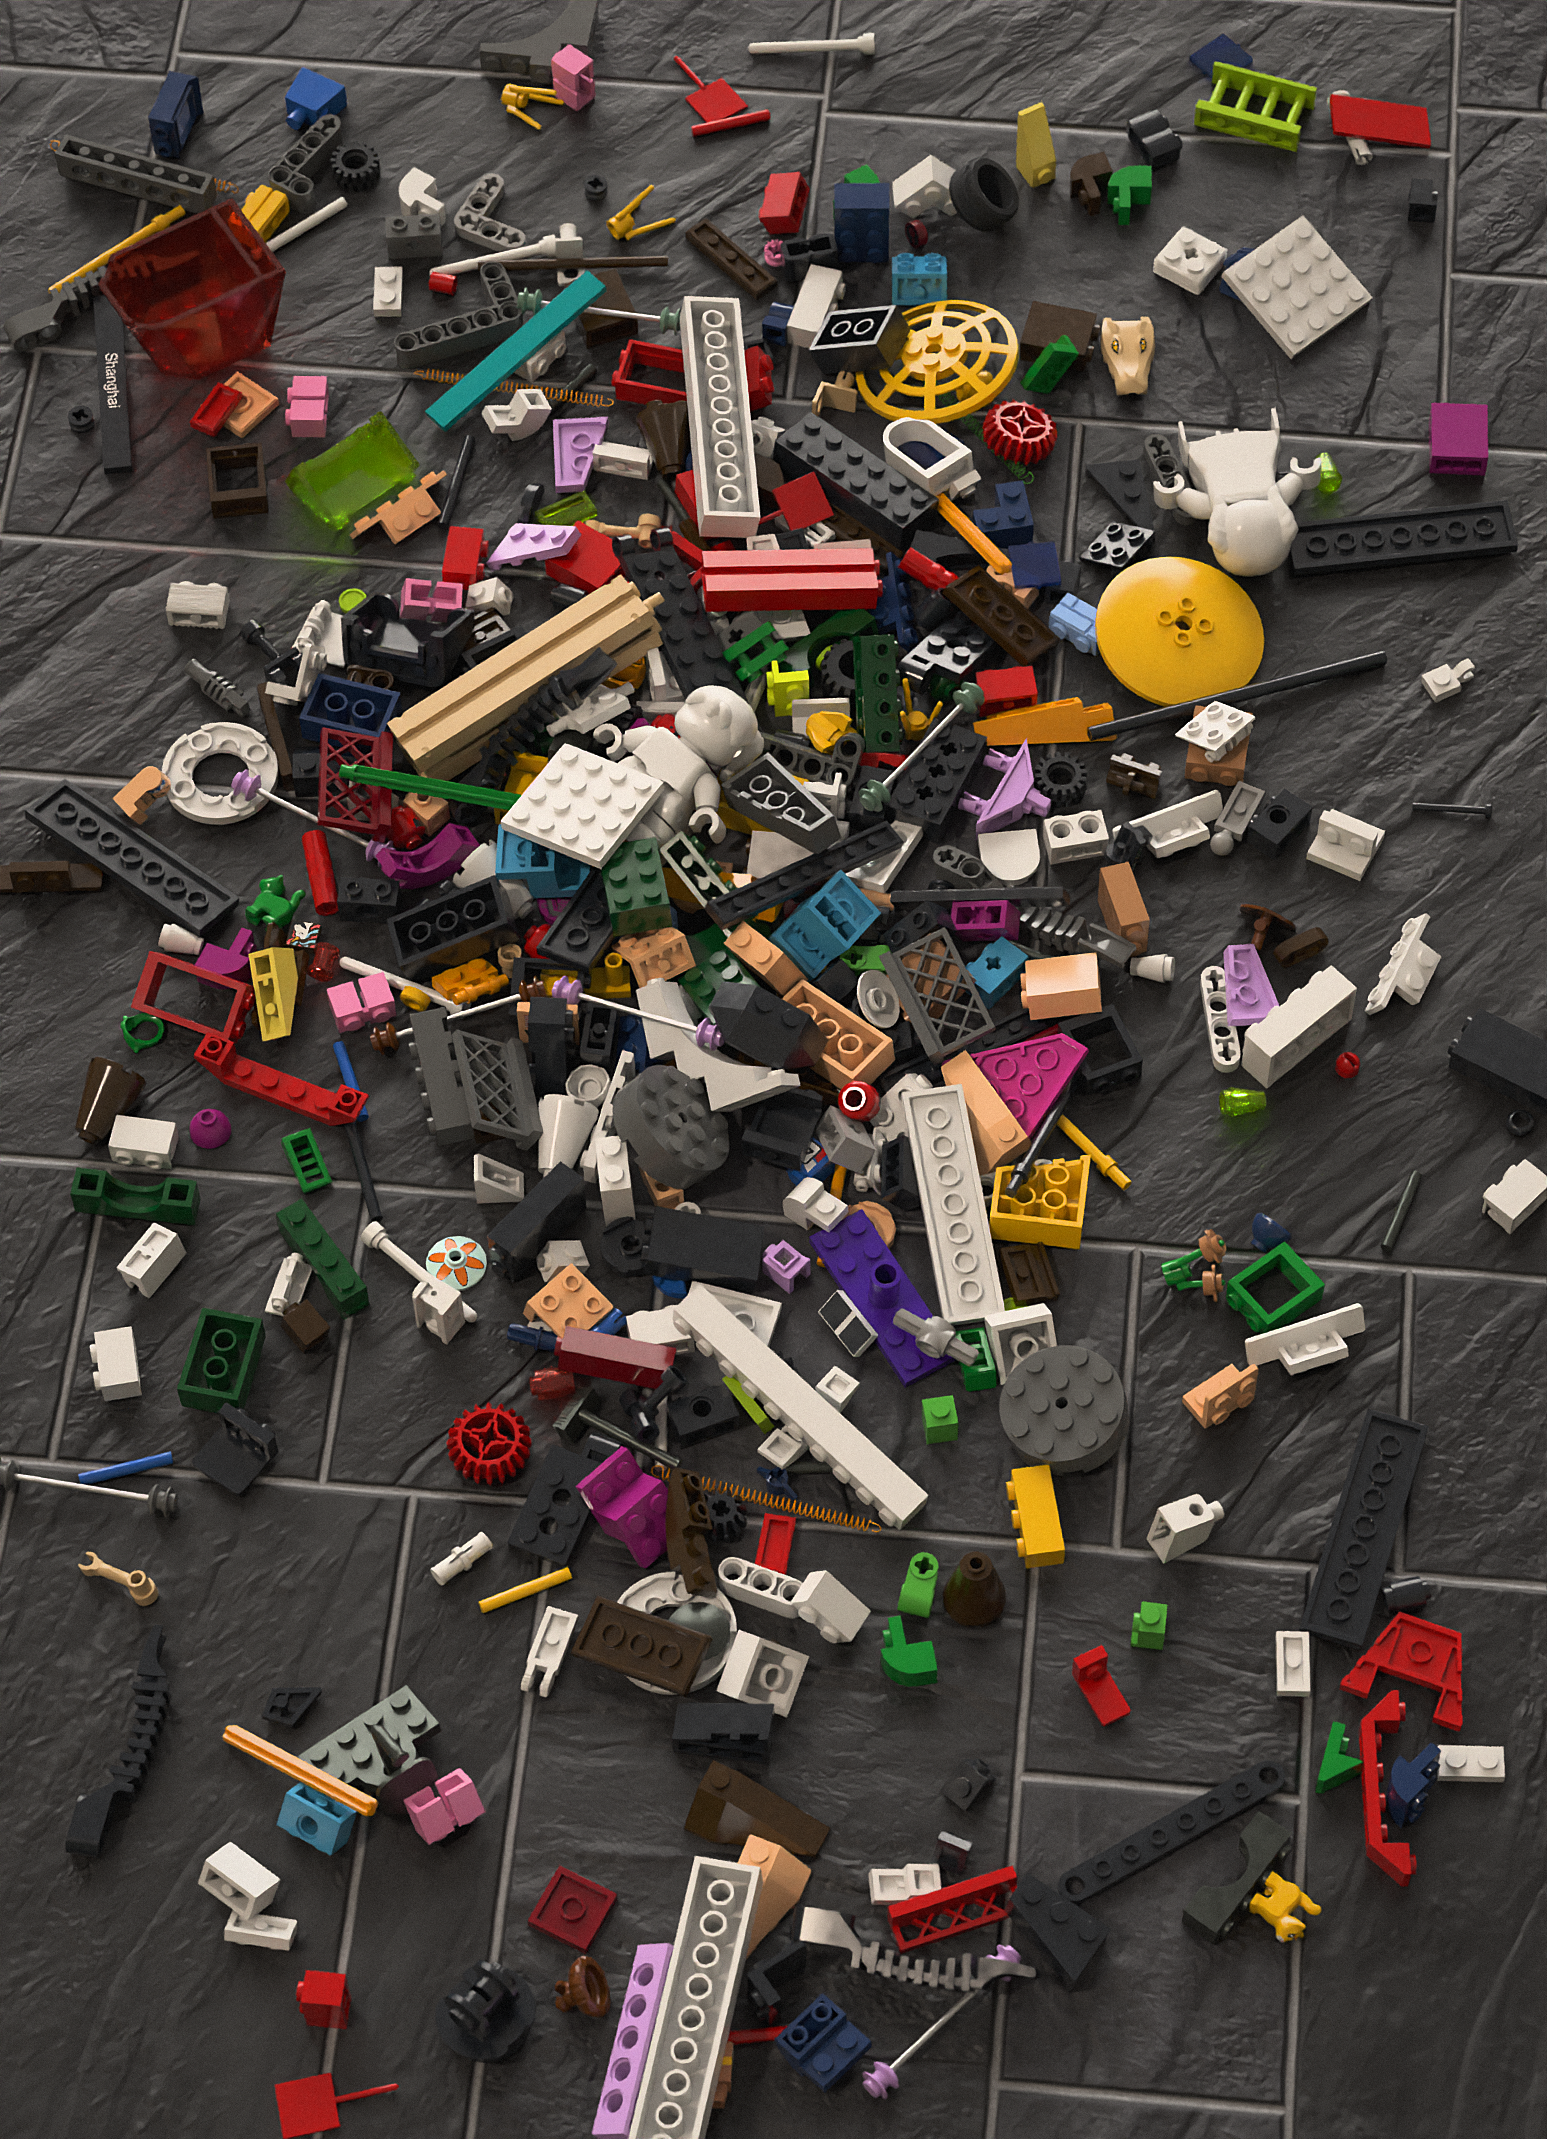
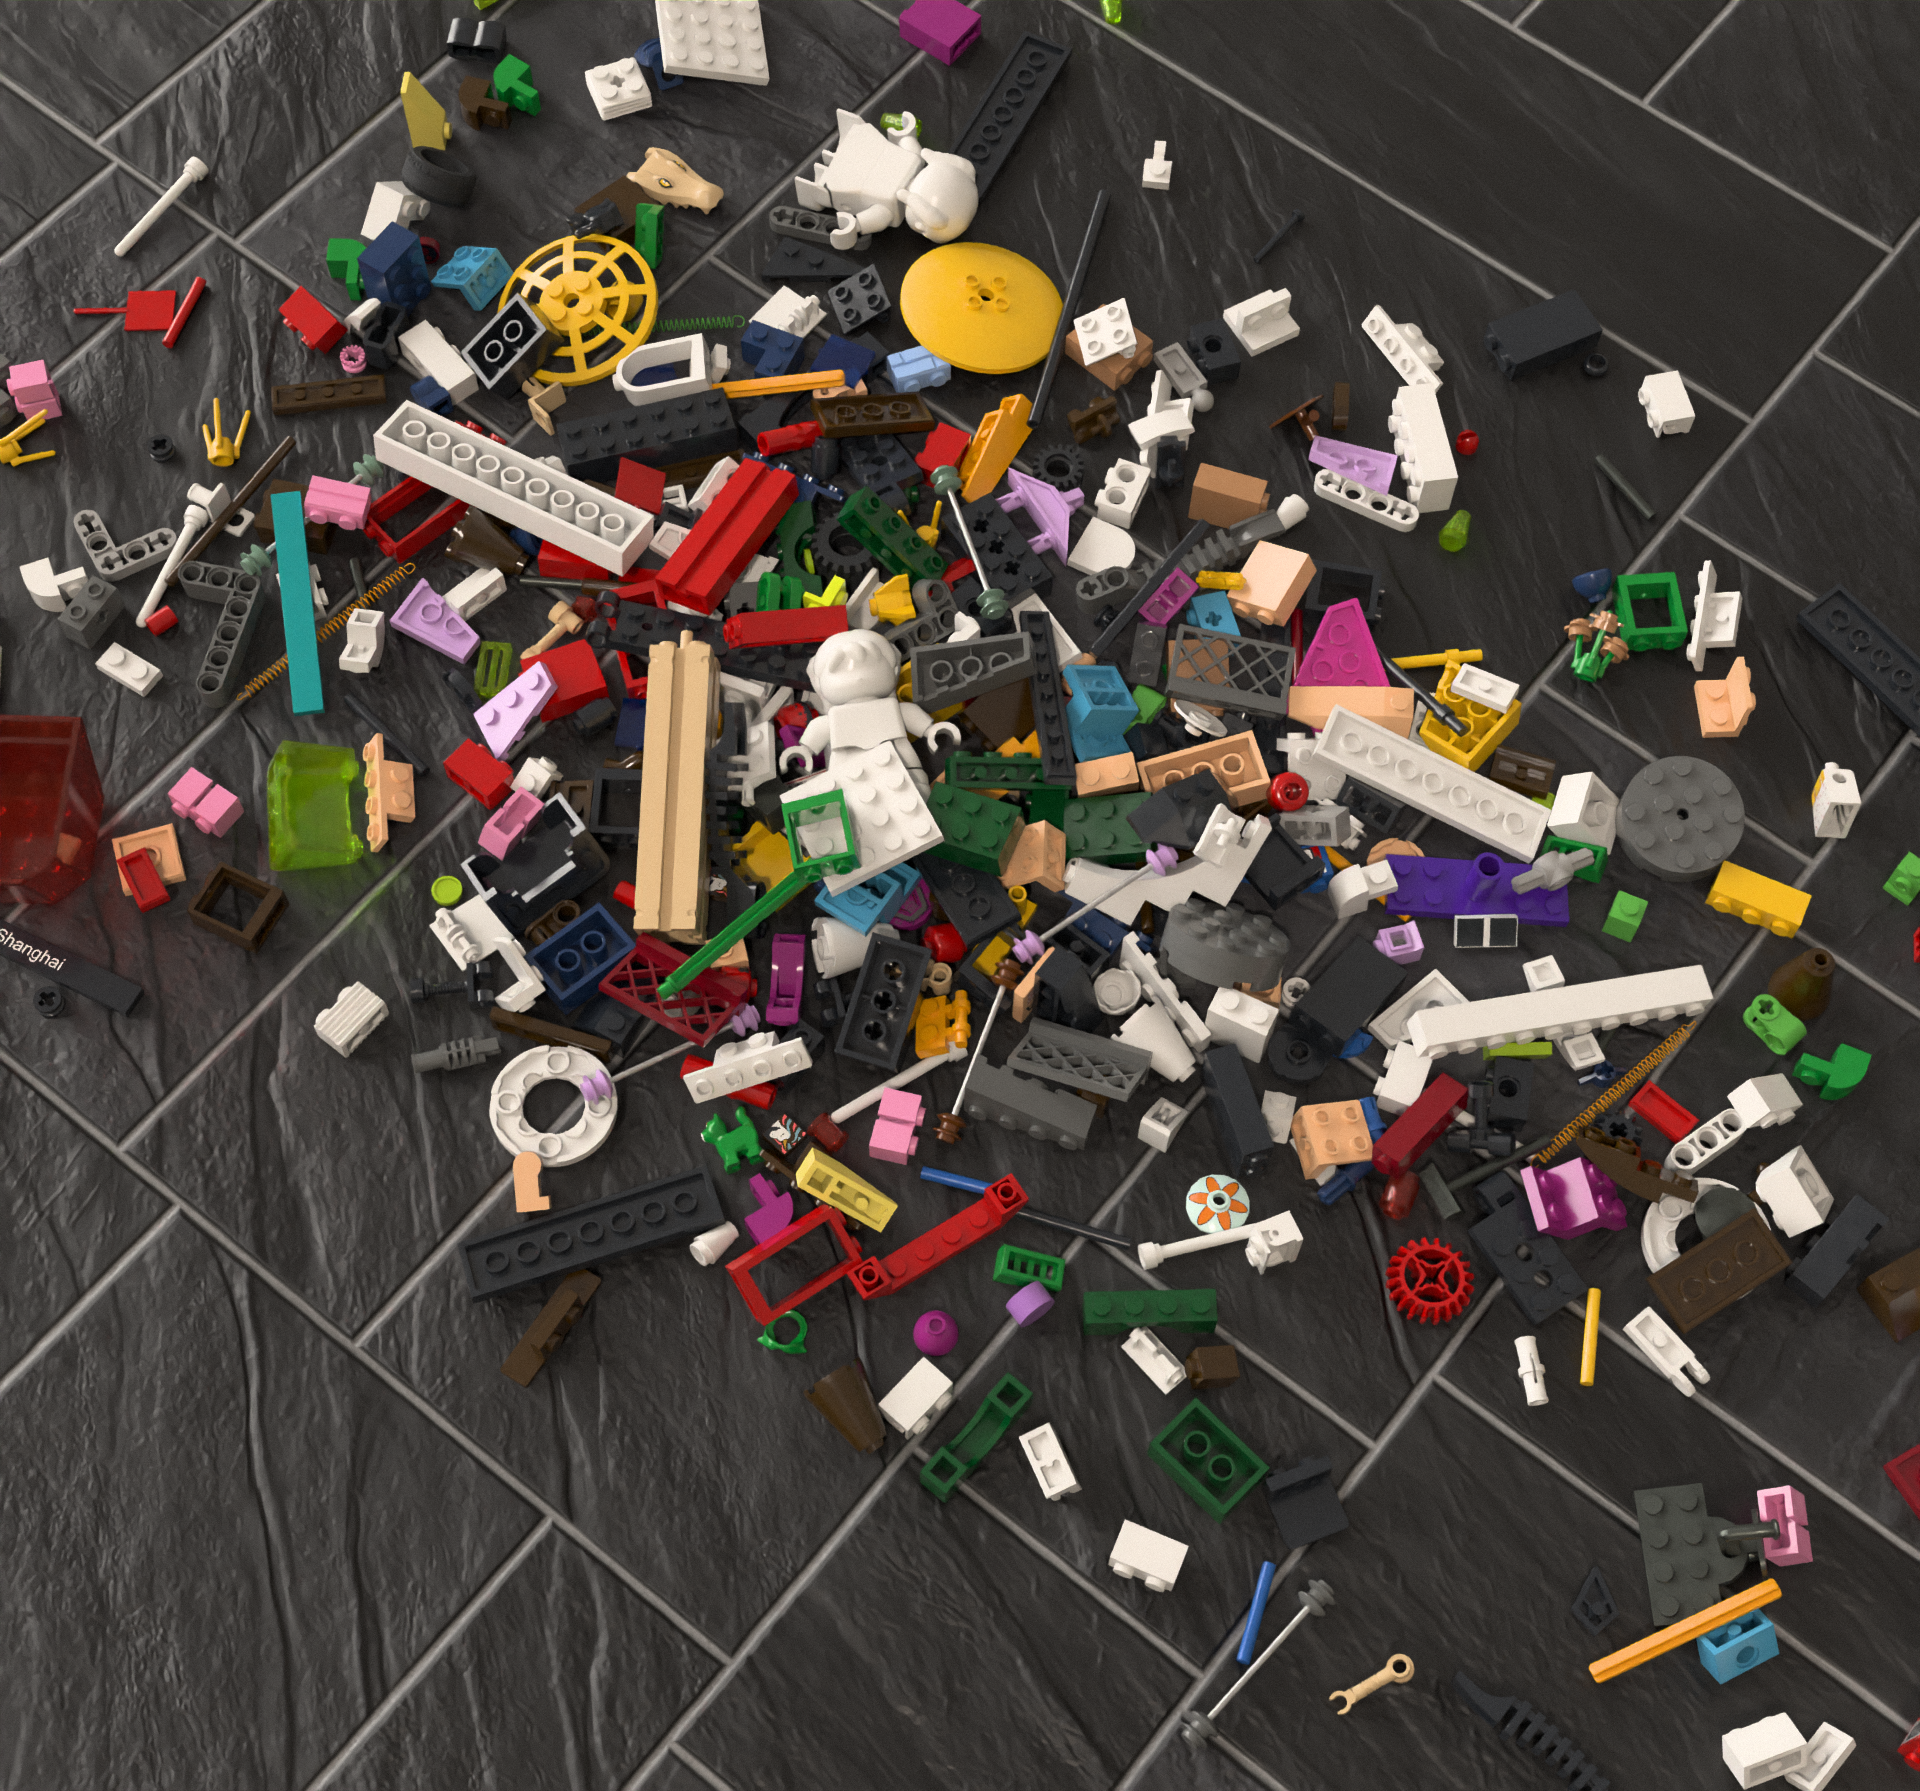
camera: 60 degrees left, 5 degrees up
(272, 1173) = (1030, 1304): none -> medium lavender piece
(331, 867) = (747, 1065): none -> white bracket
(415, 998) = (922, 1080): yellow tile -> none
(536, 756) = (815, 810): none -> green window
(617, 317) = (337, 503): none -> bright pink brick
(721, 659) = (785, 626): none -> red window
(745, 1051) = (1219, 836): none -> white hips
(807, 229) = (362, 315): none -> white slope
(1019, 432) = (695, 296): red gear -> none
(1026, 319) = (596, 220): none -> black animal
(1036, 948) = (1221, 580): none -> yellow axle
(1060, 509) = (791, 312): none -> white hinge
(1070, 1189) = (1484, 688): none -> white plate
(1163, 825) = (1167, 423): none -> white slope

